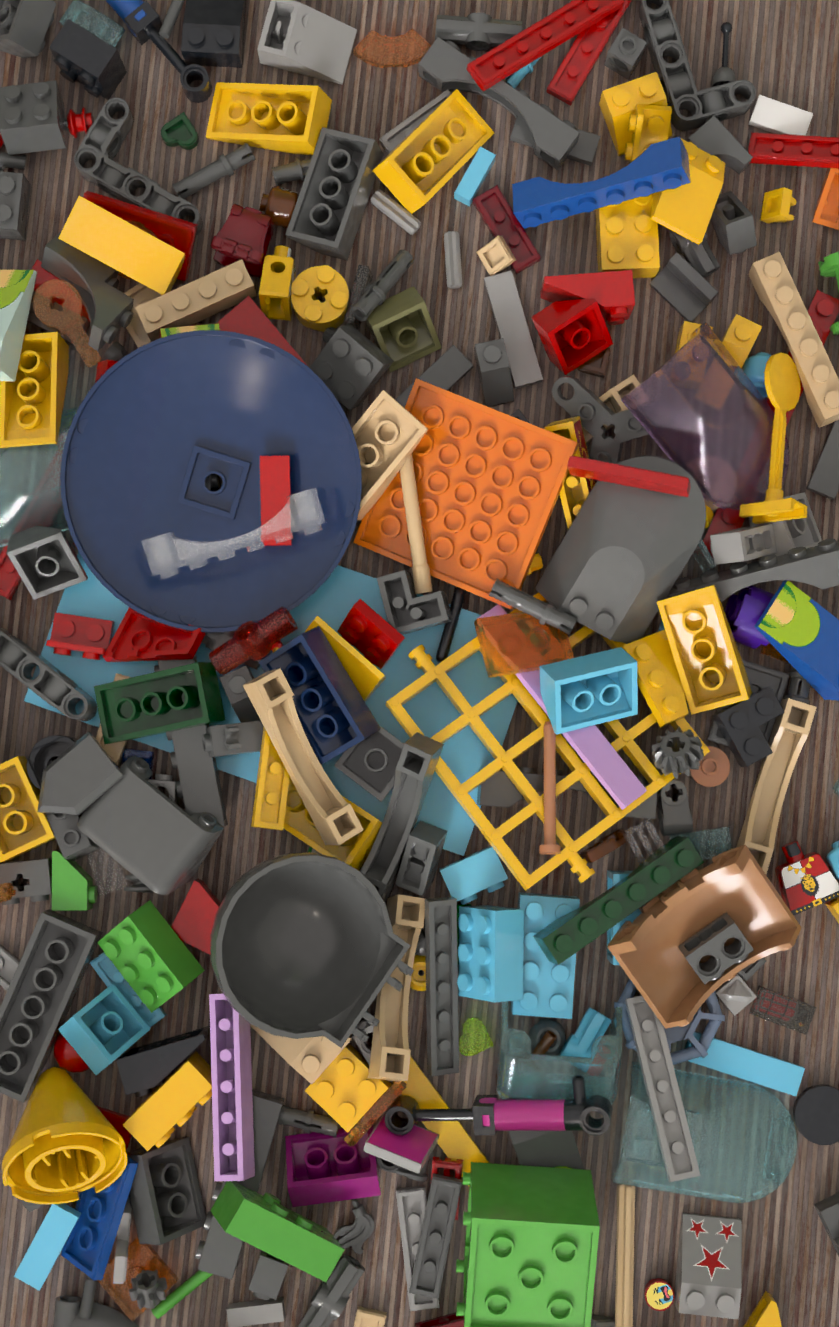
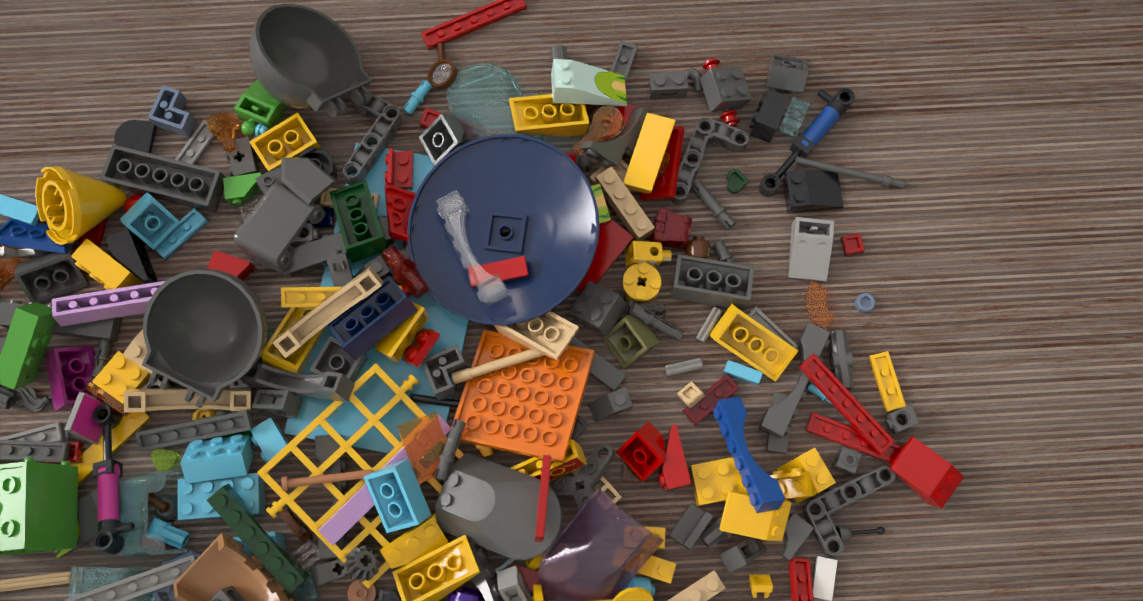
camera: 80 degrees right, 10 degrees down
(150, 956) = (198, 241): bright green piece -> none
(269, 116) = (756, 234): yellow slope -> none
(513, 328) = (643, 413): light grey tile -> none

